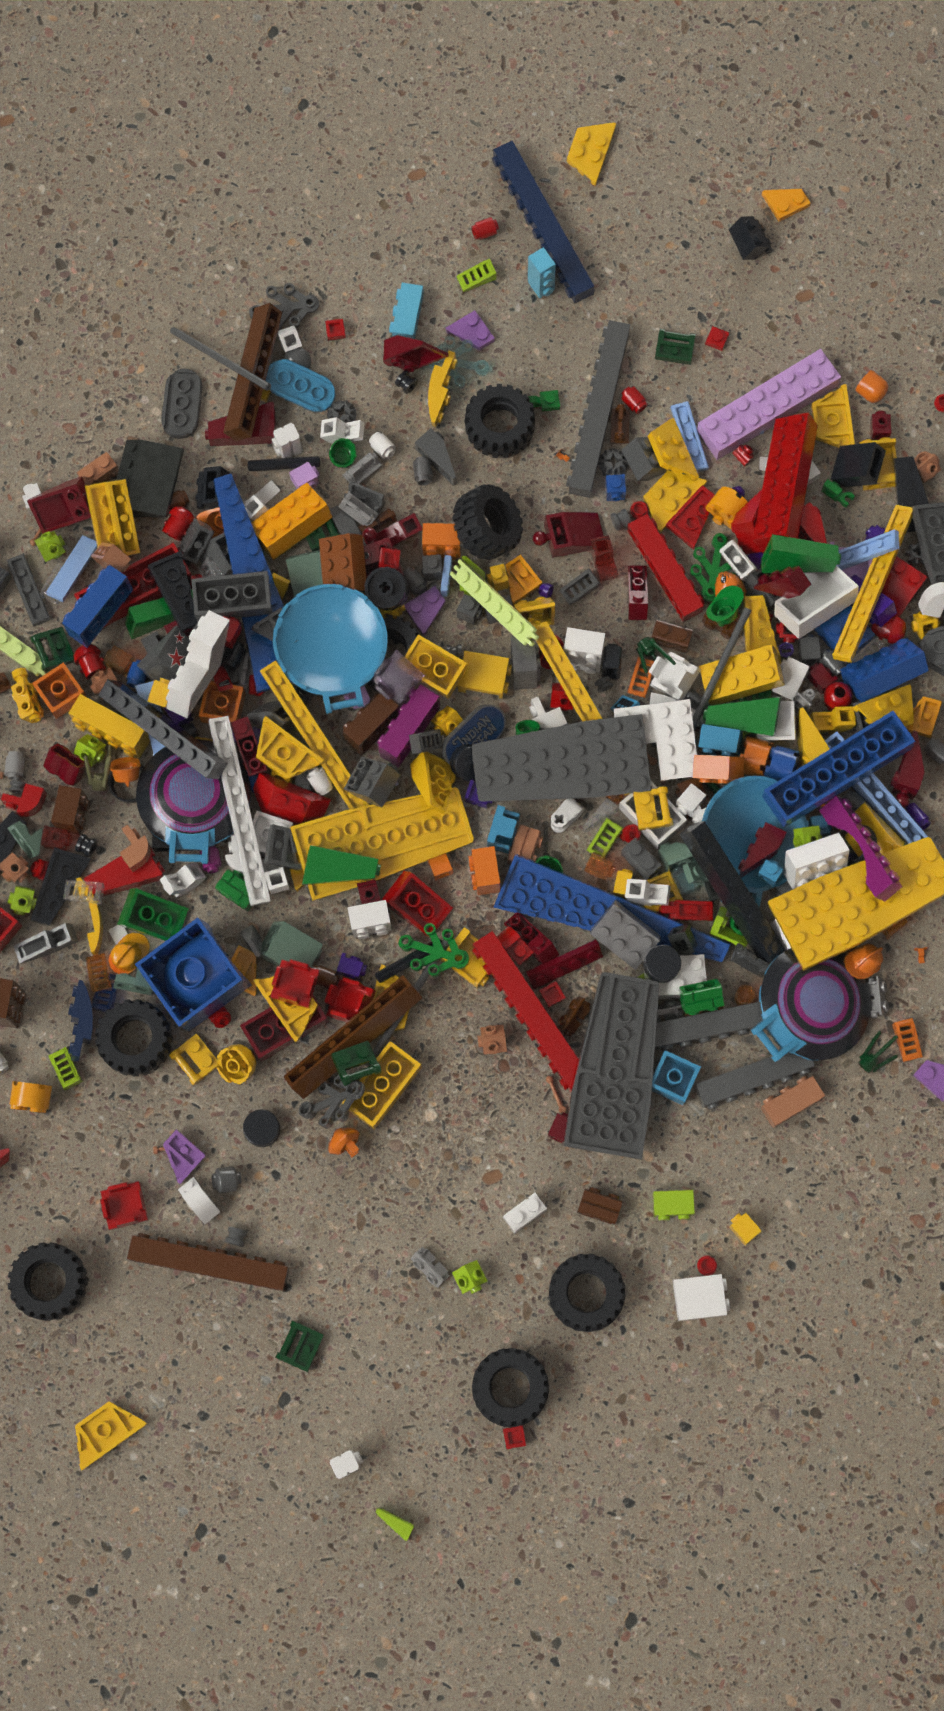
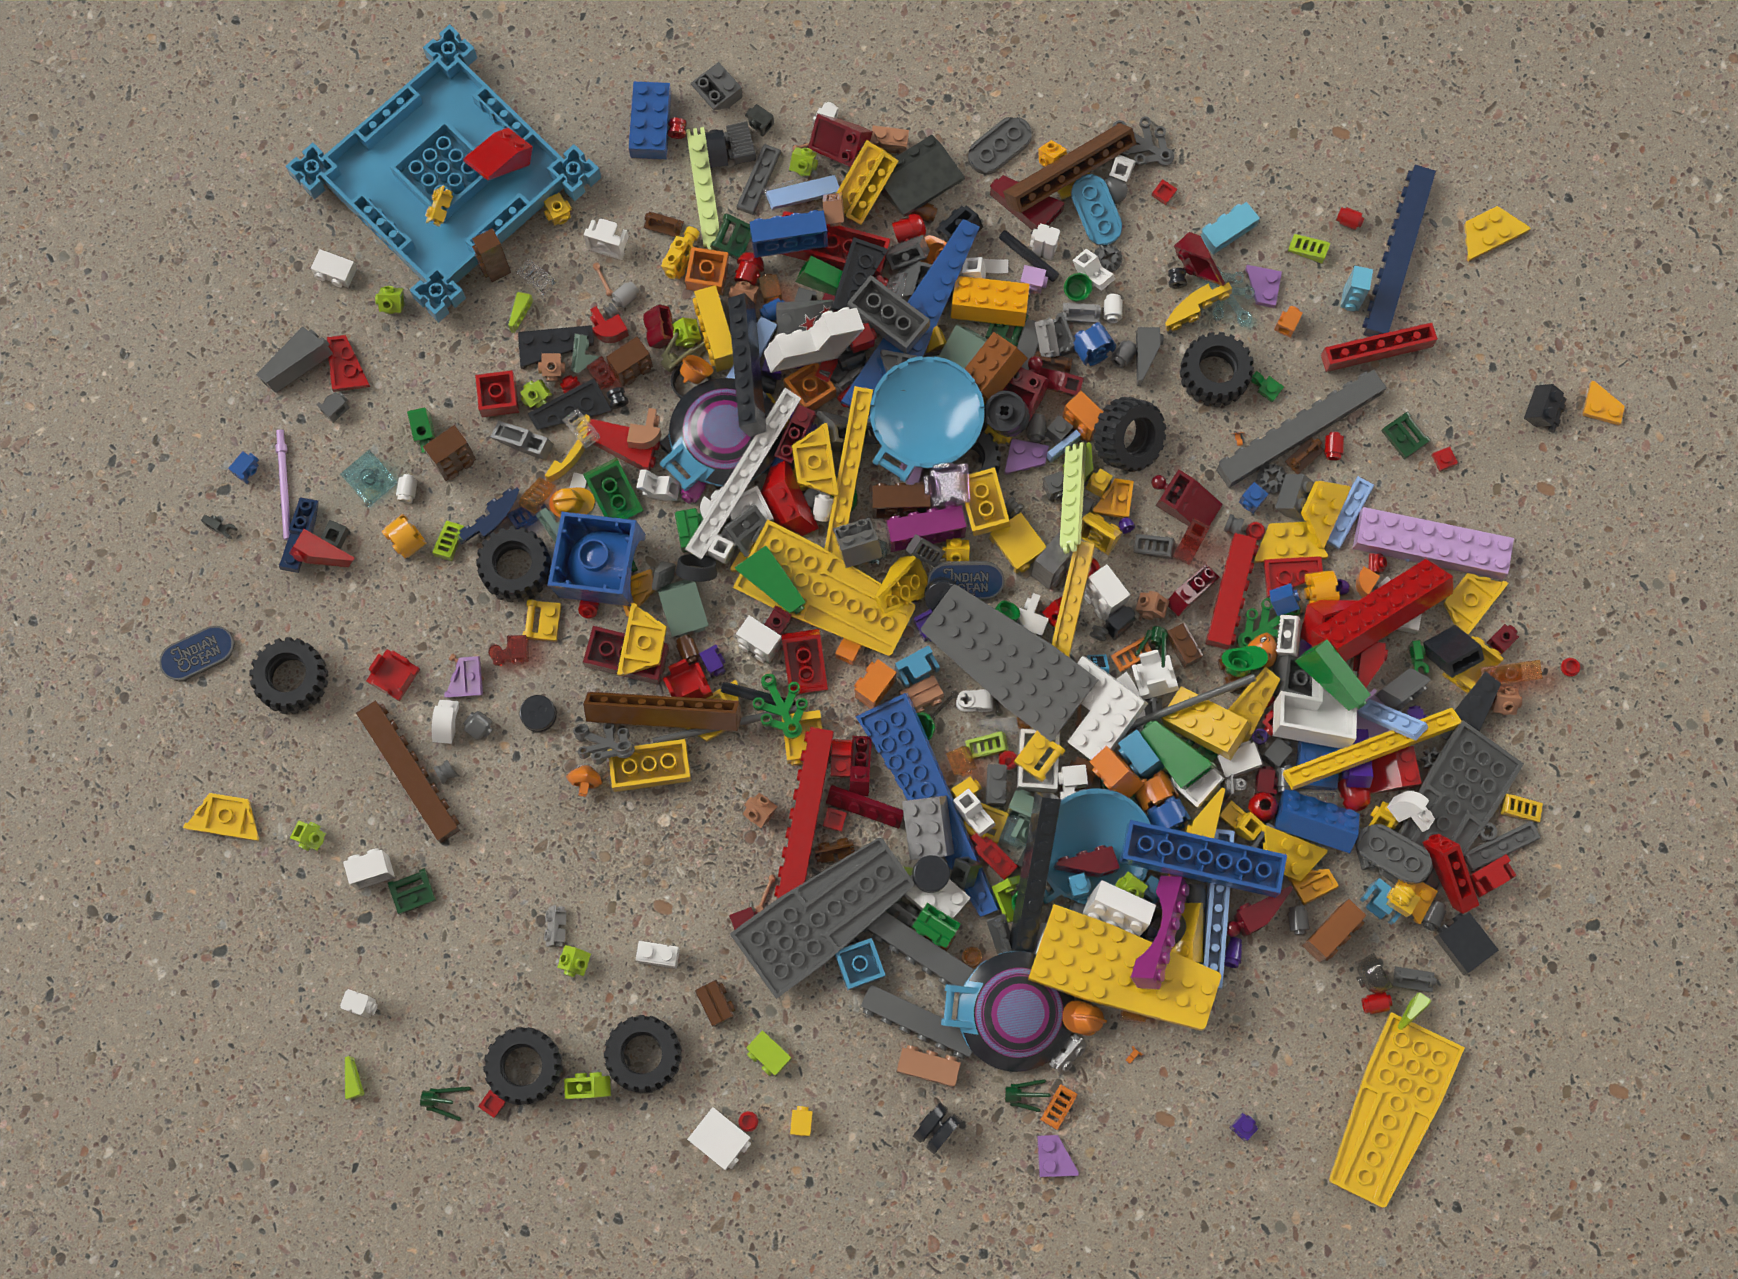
camera: 40 degrees right, 0 degrees up
(159, 692) = (768, 335): yellow brick -> none
(182, 1382) = (308, 835): none -> lime brick
(199, 1099) = (515, 652): none -> clear red brick
(218, 357) = (1055, 135): dark grey piece -> none
(226, 377) = (1050, 152): none -> light orange brick
(236, 1063) = (565, 651): yellow cylinder -> none
(253, 1360) = (368, 869): none -> white brick
(275, 917) = (689, 573): none -> black tyre
(294, 983) = (657, 632): red panel -> none
(354, 1057) = (646, 725): dark green plate -> none
(389, 558) = (1030, 393): red plate -> none
(396, 483) = (1093, 344): none -> blue brick
(467, 1478) = (431, 1099): none -> dark green plant
(515, 340) = (1288, 321): none -> orange brick
(570, 1356) = (587, 1087): none -> lime brick
(596, 301) = (1379, 347): none -> red brick
(621, 629) = (1152, 605): none -> nougat brick
(709, 537) = (1285, 599): none -> blue brick
(750, 474) = (1365, 581): none -> orange brick
(785, 583) = (1302, 685): dark red slope -> none
(843, 1137) = (936, 1127): none -> black wheel
(850, 523) = (1403, 689): none -> dark grey slope
(872, 387) = (1526, 604): orange helmet -> none
(912, 439) = (1515, 672): none -> clear orange slope

